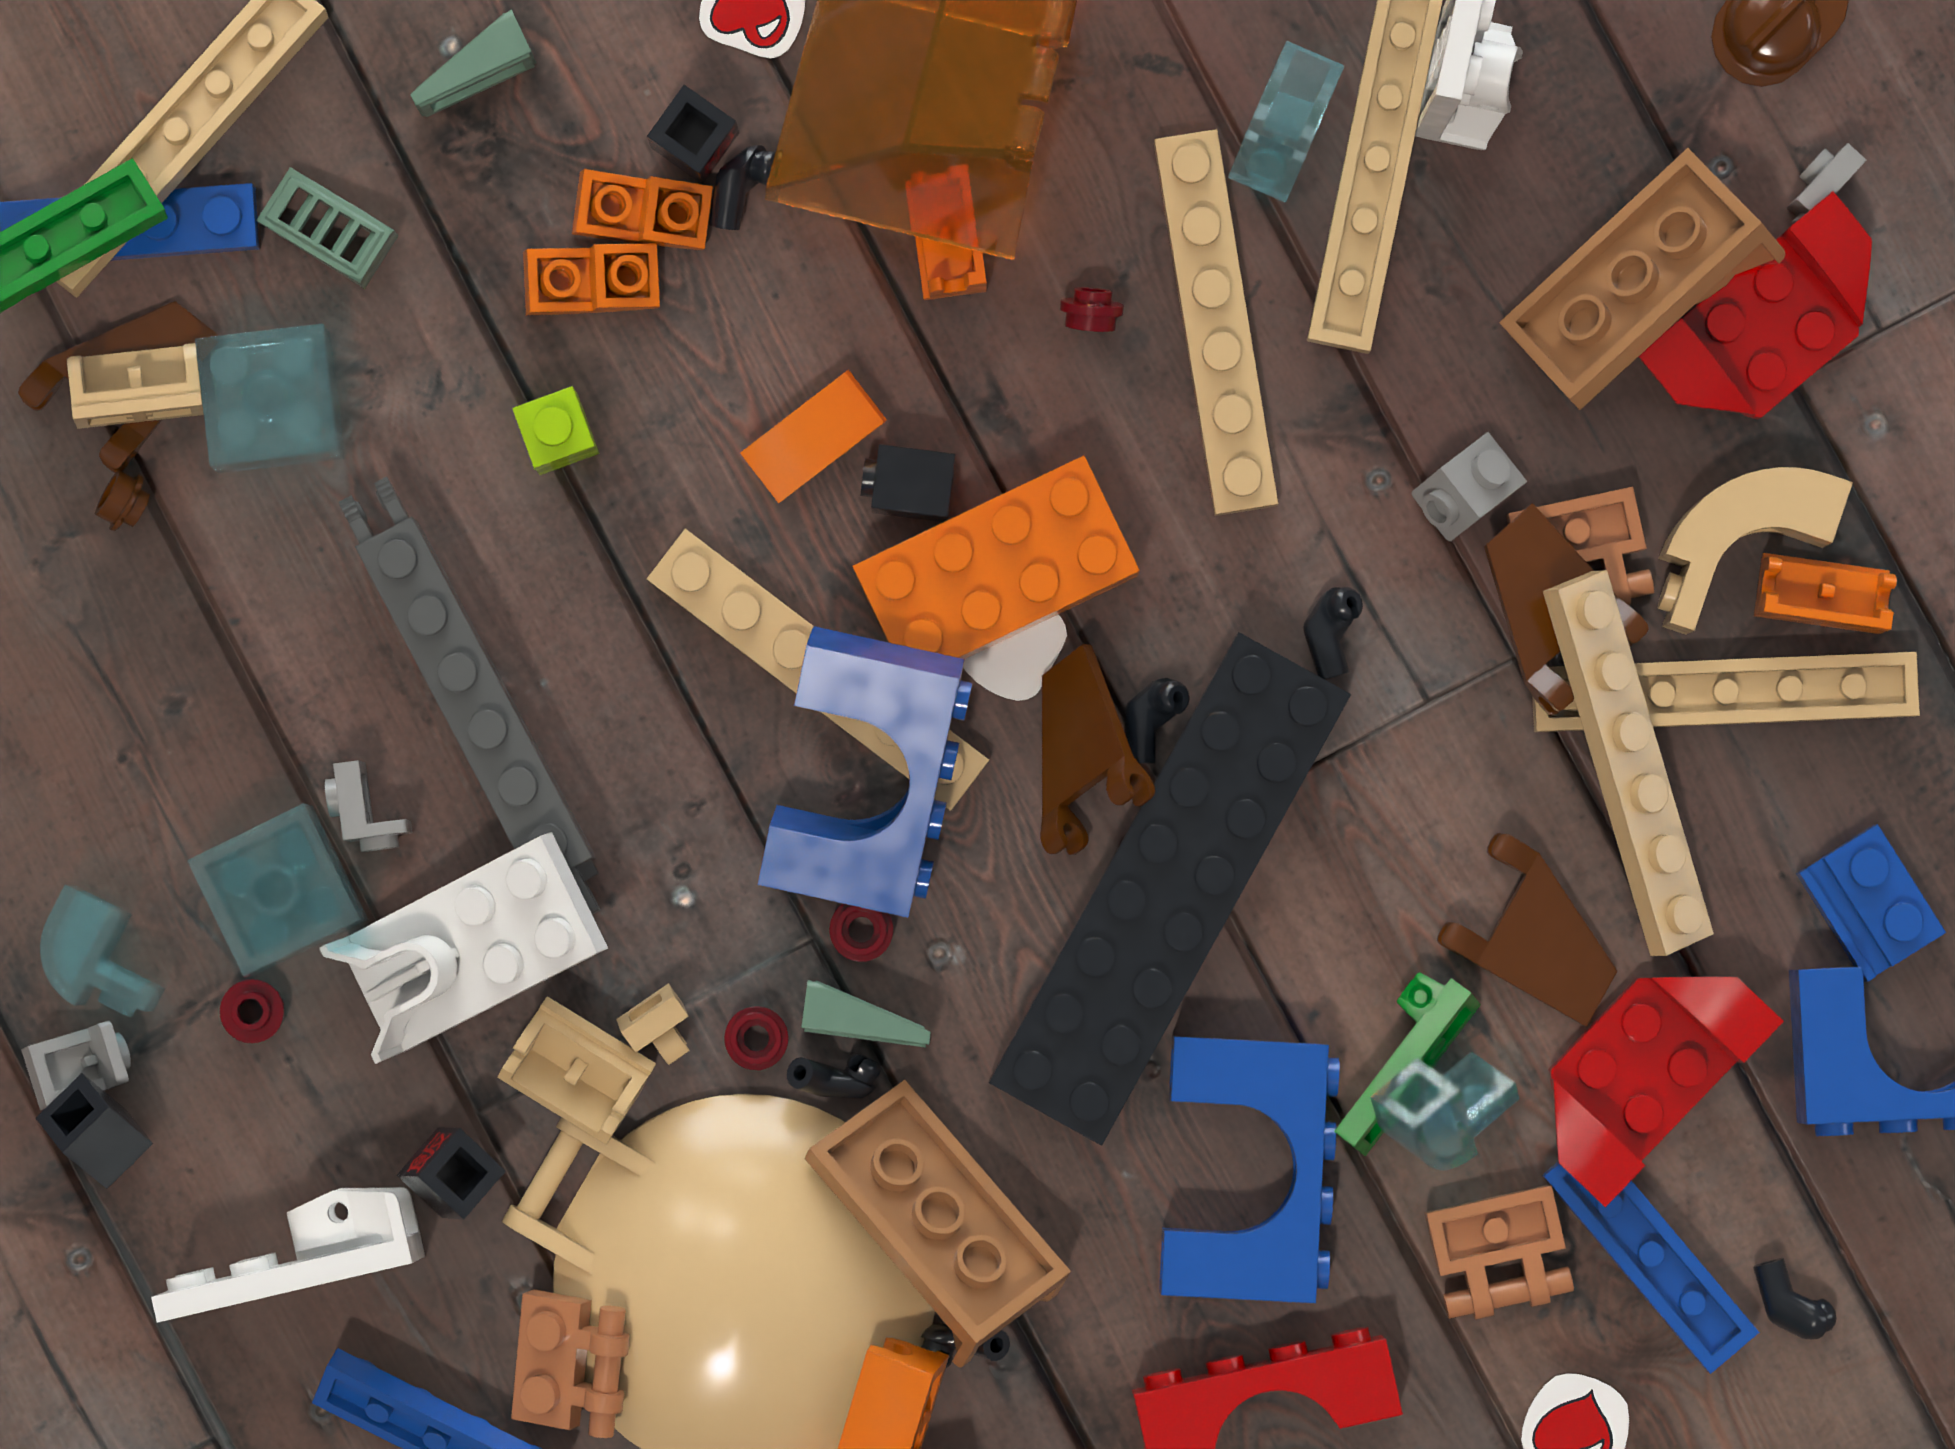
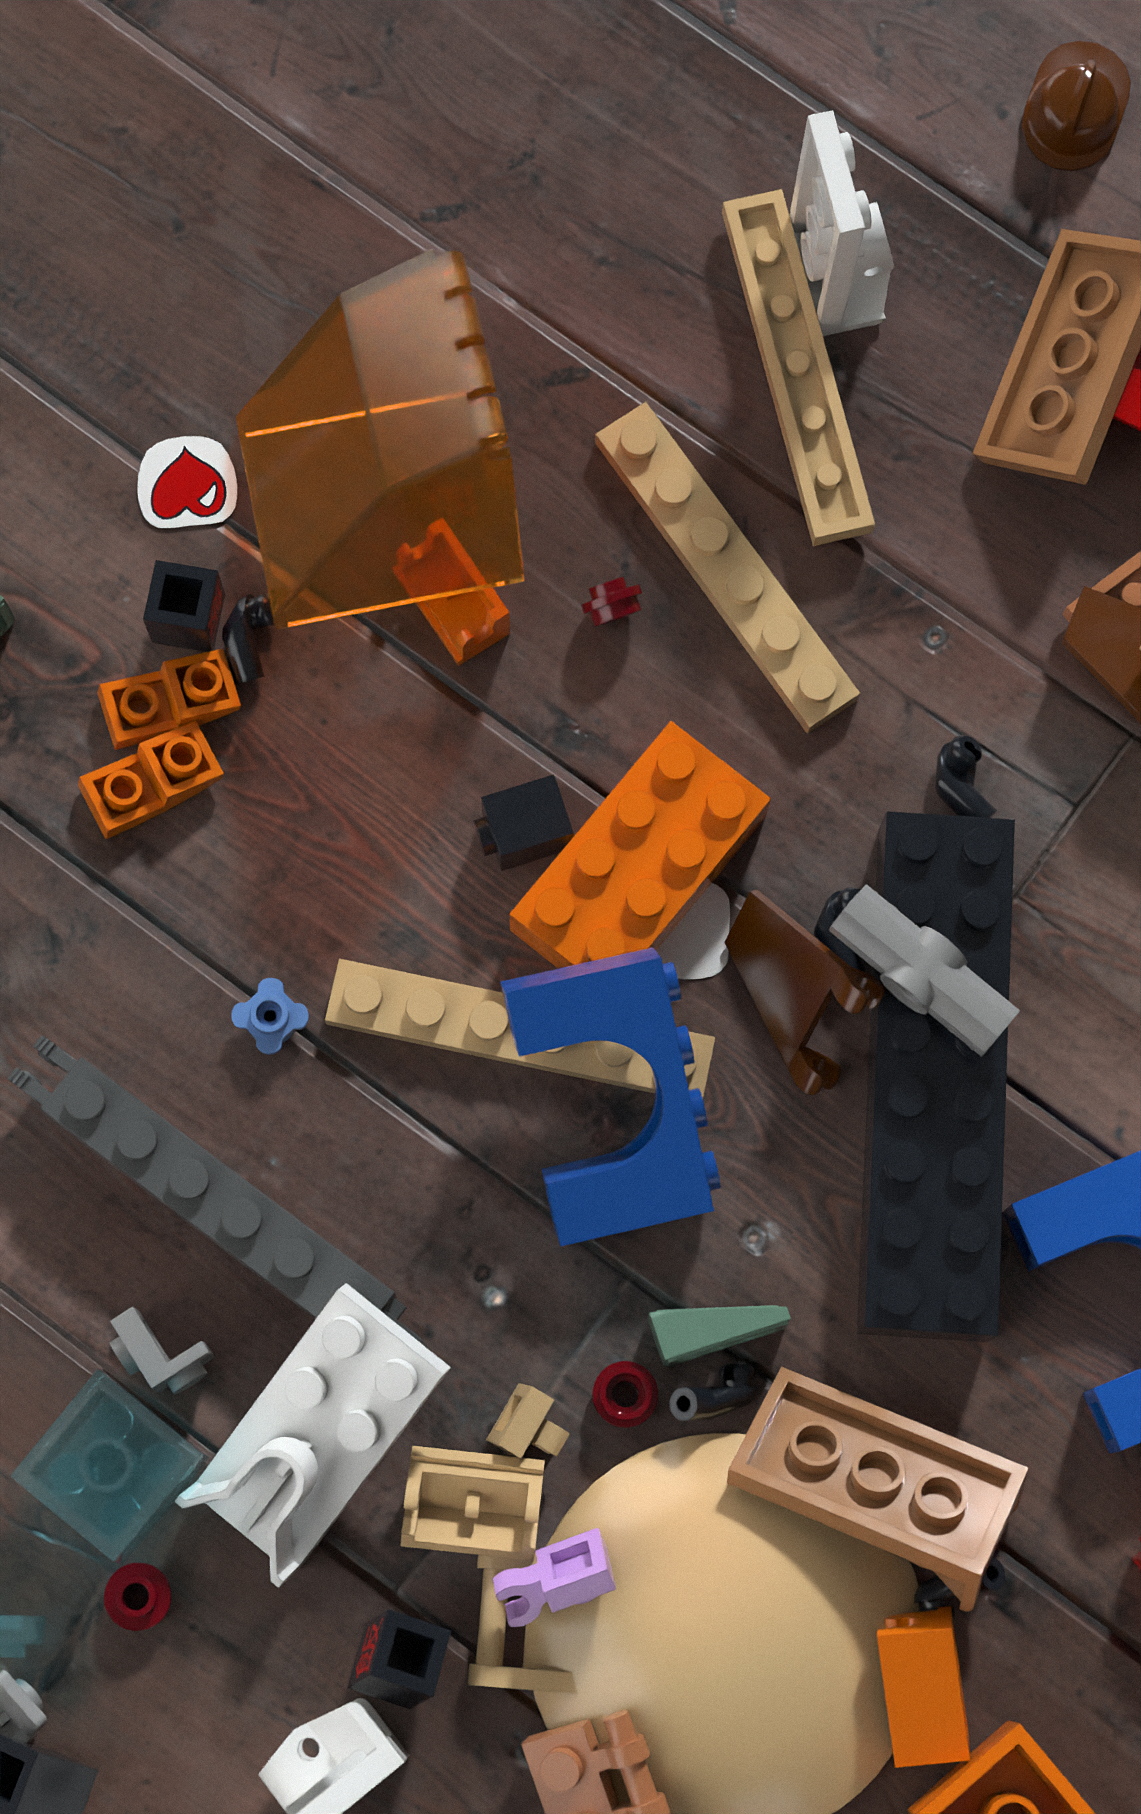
camera: 25 degrees left, 10 degrees down
(555, 430) = (180, 923): lime brick -> none
(616, 558) = (270, 1035): none -> medium blue plate
(624, 1171) = (564, 1576): none -> lavender plate
(813, 436) = (417, 823): orange slope -> none
(860, 950) = (677, 1269): dark red plate -> none
(1192, 796) = (923, 970): none -> light grey piece
(1286, 121) = (704, 367): clear light blue brick -> none
(1468, 487) = (1017, 604): light grey bracket -> none

